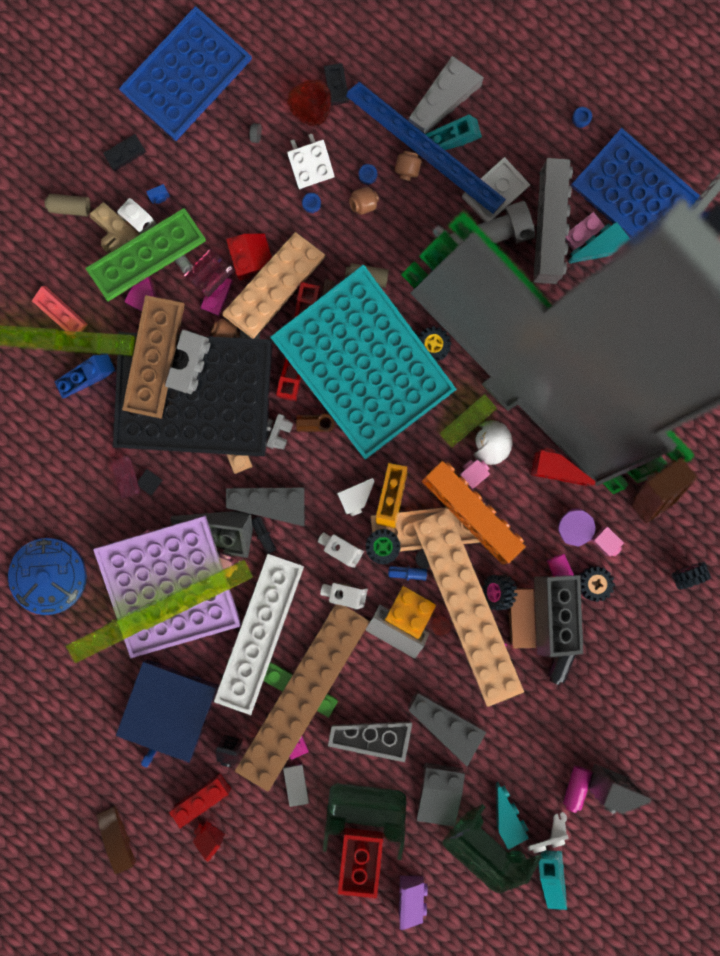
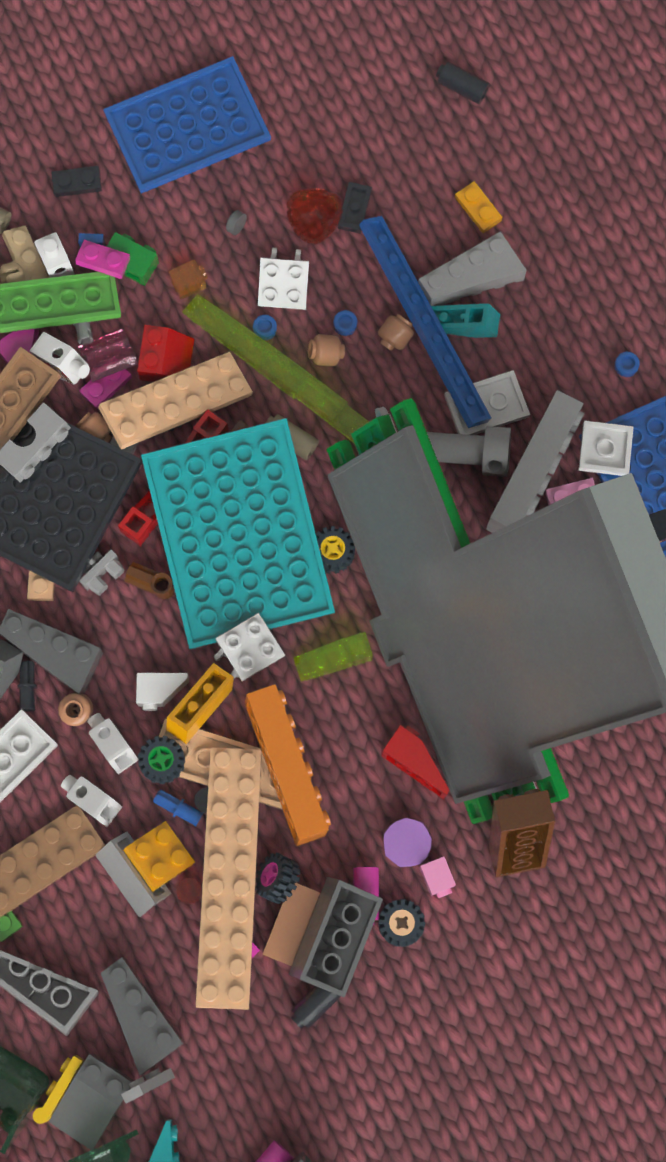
camera: 25 degrees right, 10 degrees down
(173, 203) = (102, 259): none -> dark pink plate
(185, 291) = (69, 365): none -> white torso
(191, 193) = (142, 258): none -> green brick
(240, 191) = (188, 279): none -> clear orange brick
(310, 541) = (84, 709): none -> nougat head
(337, 229) = (275, 366): none -> clear neon green slope
(408, 441) = (249, 647): none -> white plate
(414, 799) = (57, 1089): none -> yellow plate
(425, 45) = (478, 207): none -> light orange plate
(475, 472) = (313, 722): bright pink brick -> none
(475, 770) = (141, 1086): none -> light grey plate
(493, 442) = (352, 696): white hair -> none
(596, 186) = (606, 448): none -> white plate
(691, 575) = (521, 963): black wheel -> none

